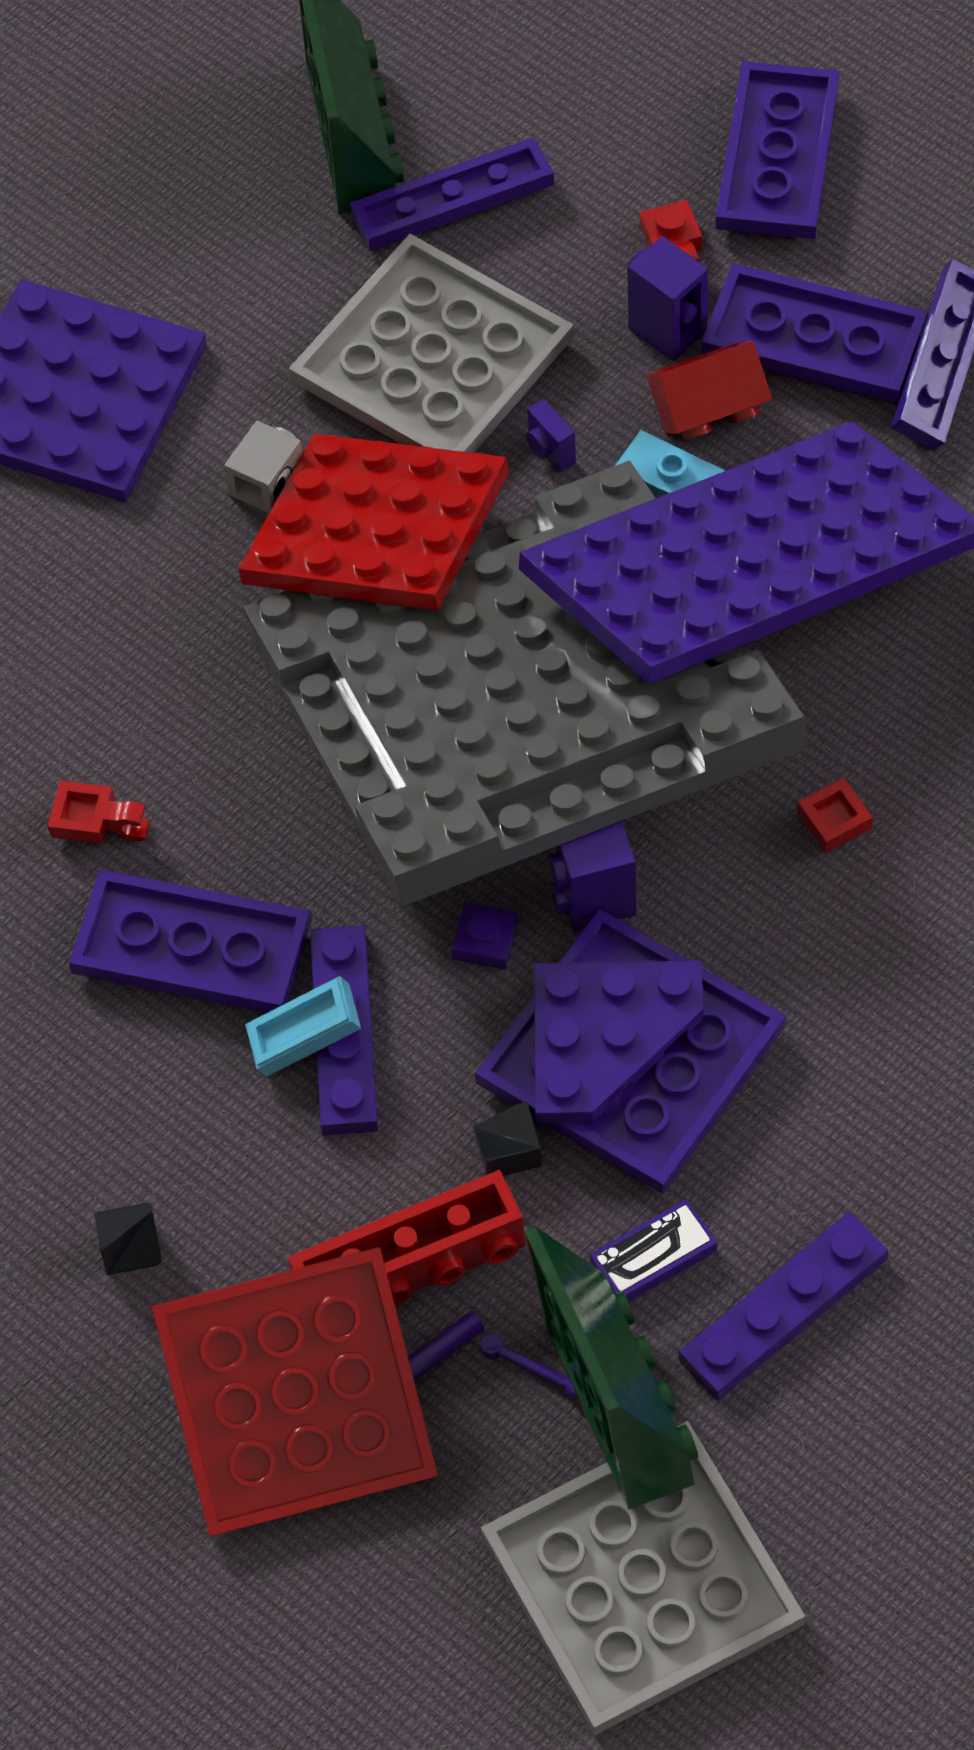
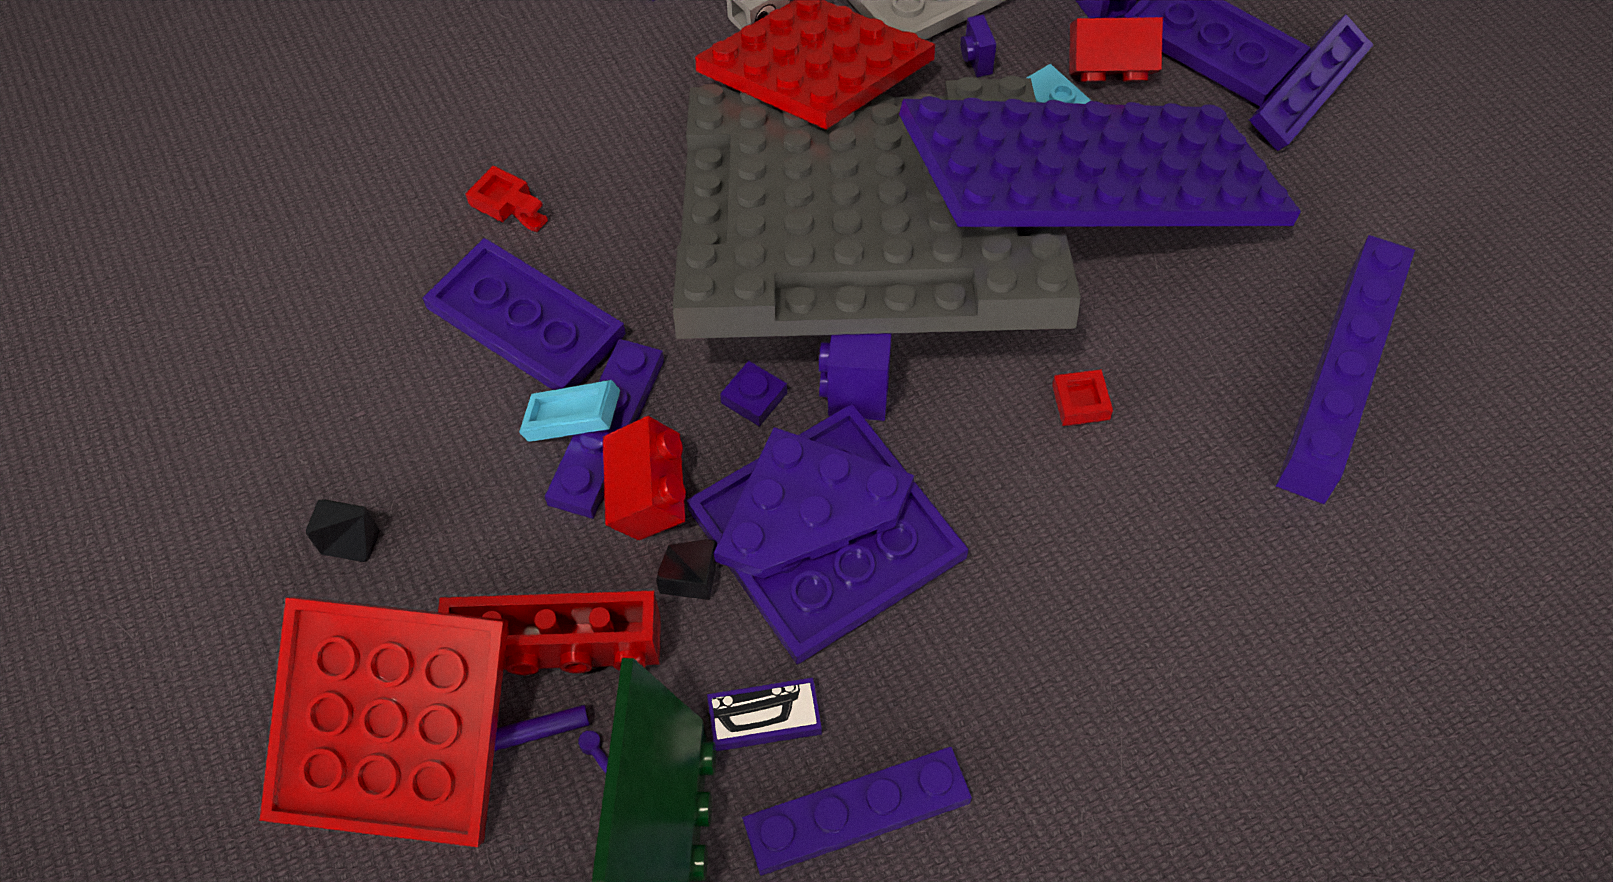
camera: 20 degrees right, 0 degrees up
(422, 1066) = (643, 478): none -> red brick

